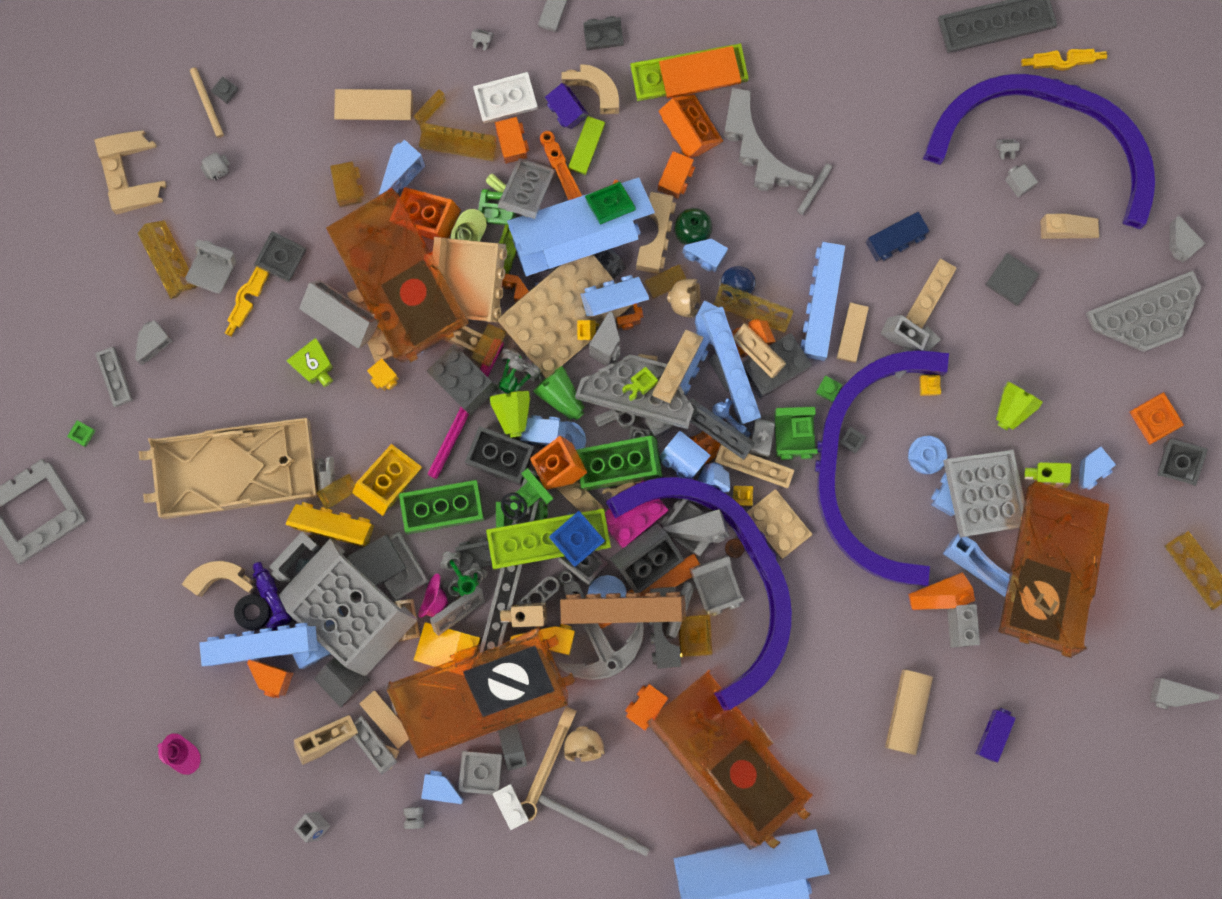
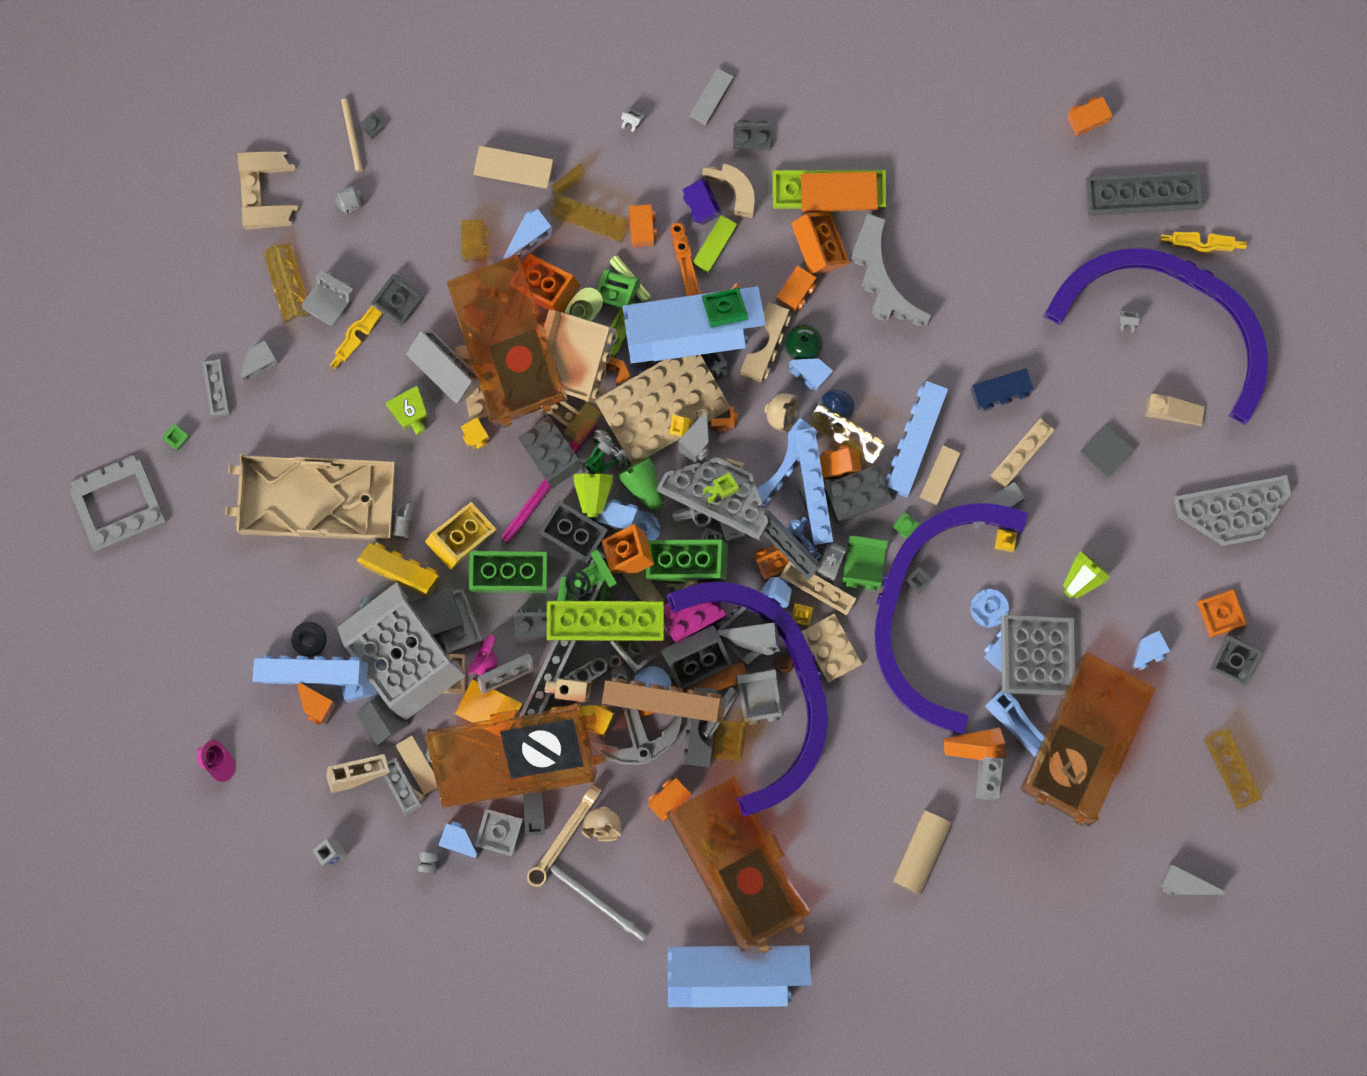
camera: 15 degrees right, 0 degrees up
(205, 575) = (274, 594): tan arch -> none
(268, 591) = (328, 621): dark purple piece -> none
(291, 554) = (356, 590): light grey panel -> none
(336, 491) = (410, 538): clear yellow tile -> none
(461, 584) = (515, 649): light grey plant -> none
(505, 97) = (644, 182): white plate -> none
(510, 807) = (521, 869): white plate -> none
(526, 188) = (647, 277): light grey plate -> none
(576, 539) = (631, 625): blue plate -> none
(613, 295) = (711, 397): light blue slope -> none
(664, 281) = (766, 391): clear yellow tile -> none
(677, 366) = (761, 477): tan plate -> none
(684, 456) = (750, 566): light blue brick -> none
(759, 350) = (842, 476): tan tile -> none
(801, 427) = (871, 559): bright green plate -> none
(814, 189) = (930, 327): light grey bar -> none
(904, 333) = (990, 485): light grey slope -> none
(995, 735) = (1001, 889): dark purple brick -> none
(1020, 180) = (1135, 355): light grey brick -> none
(1058, 474) = (1112, 649): lime torso -> none
(1183, 240) = (1284, 444): light grey slope -> none

